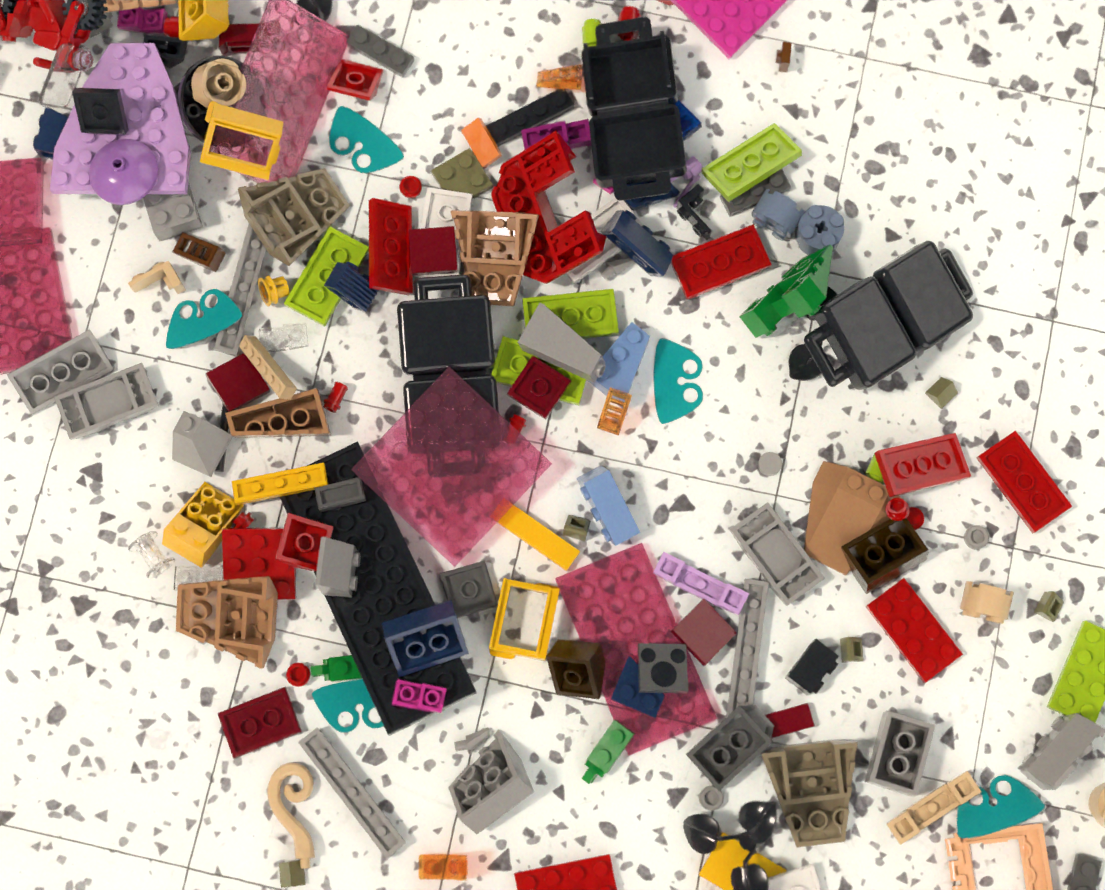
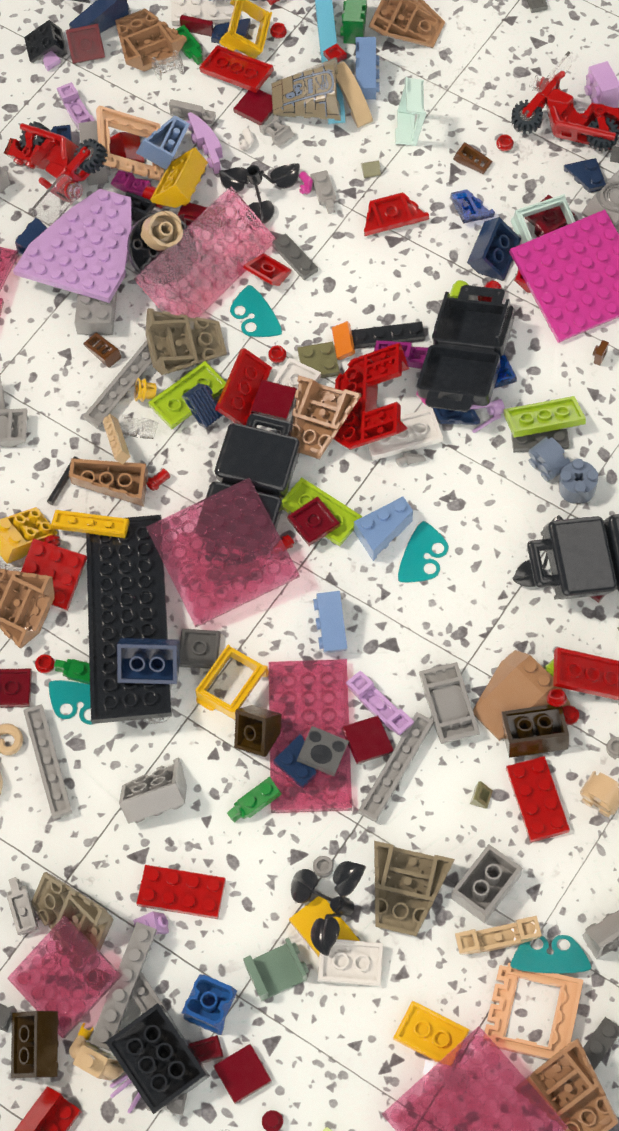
camera: 25 degrees right, 15 degrees down
(100, 110) = (71, 225): black tile -> none
(130, 180) = (70, 272): medium lavender dish -> none
(159, 271) = (64, 353): tan bracket -> none
(193, 329) = (74, 399): teal piece -> none
(198, 443) = (43, 476): light grey slope -> none
(237, 382) = (90, 444): dark red tile -> none
(247, 123) = (171, 261): yellow piece -> none
(301, 542) = (88, 567): red slope -> none
(337, 568) = (104, 589): light grey slope -> none
(340, 494) = (131, 545): dark grey tile -> none
(418, 696) = (125, 700): dark pink slope -> none
(443, 867) = (93, 840): clear orange bracket -> none
(472, 741) = (155, 757): light grey bar -> none
(539, 537) = (268, 629): yellow tile -> none
(558, 344) = (340, 493): light grey slope -> none
(561, 78) = (424, 315): clear orange slope -> none
(576, 527) = (300, 632): olive slope -> none
(587, 312) = (359, 481): lime plate -> none
(611, 425) = (353, 561): clear orange slope -> none
(638, 243) = (431, 442): dark blue slope -> none
(693, 199) = (485, 429): black bracket -> none
(720, 262) = (491, 480): red plate -> none
(732, 745) = (354, 828): dark grey slope -> none
(769, 464) = (471, 637): light grey tile -> none
(791, 720) = (407, 830): dark red tile -> none
(798, 292) = (534, 513): green wedge -> none
(812, 667) = (443, 796): black brick -> none

